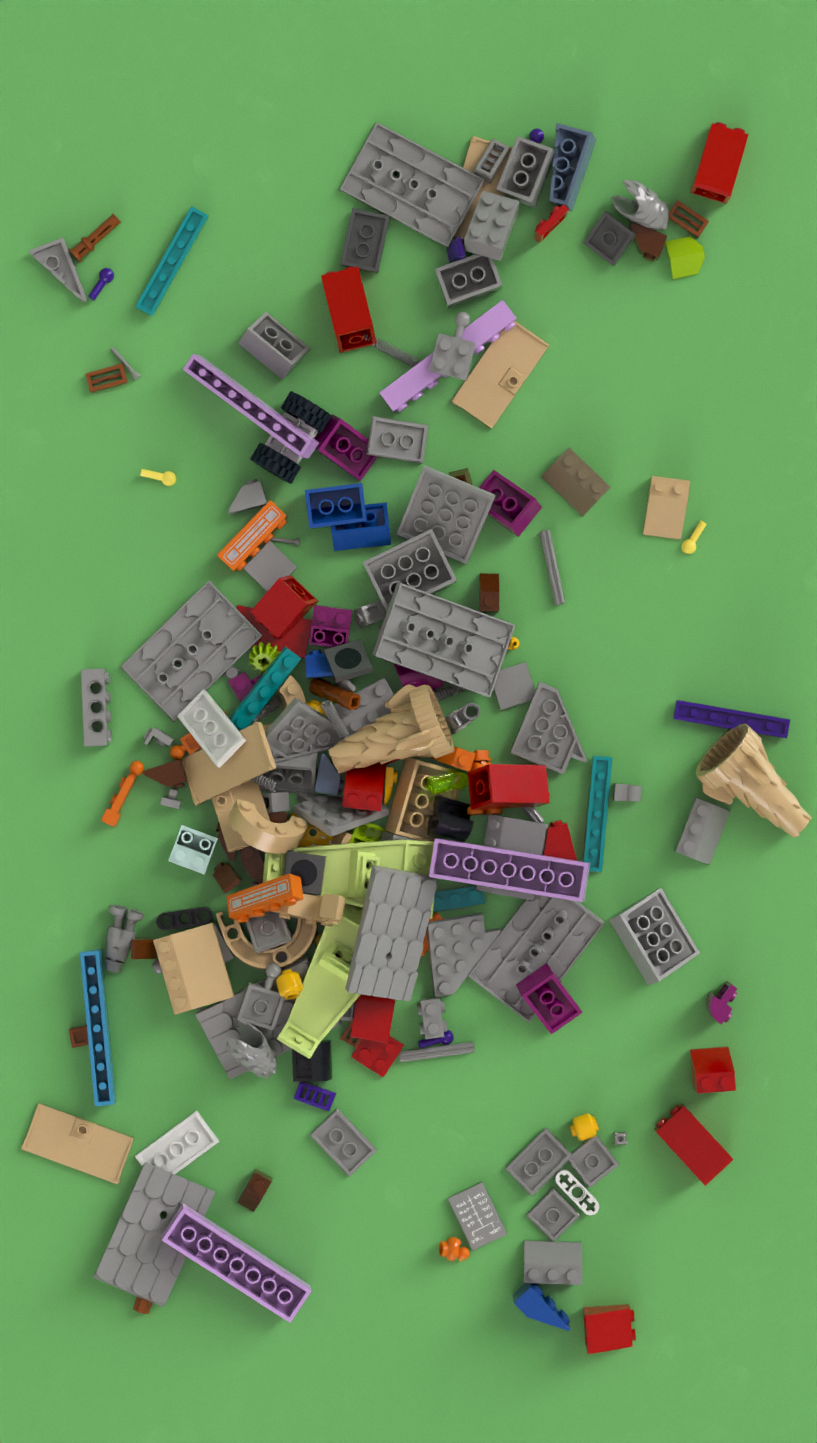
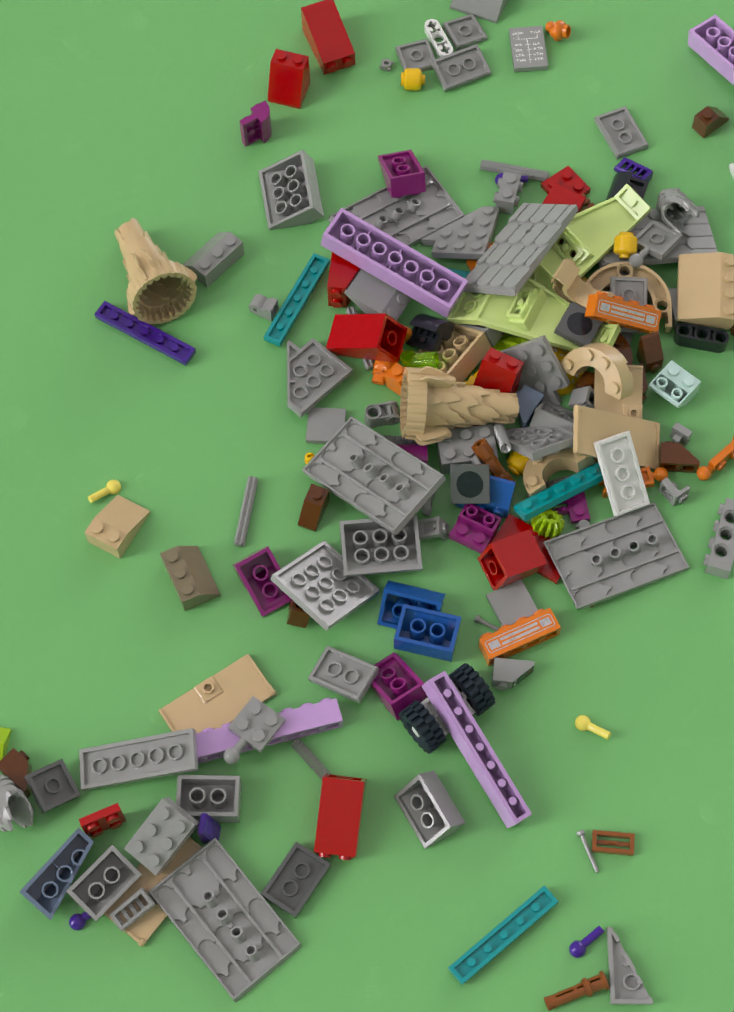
camera: 160 degrees left, 25 degrees down
(543, 287) = (138, 759): none -> light grey plate

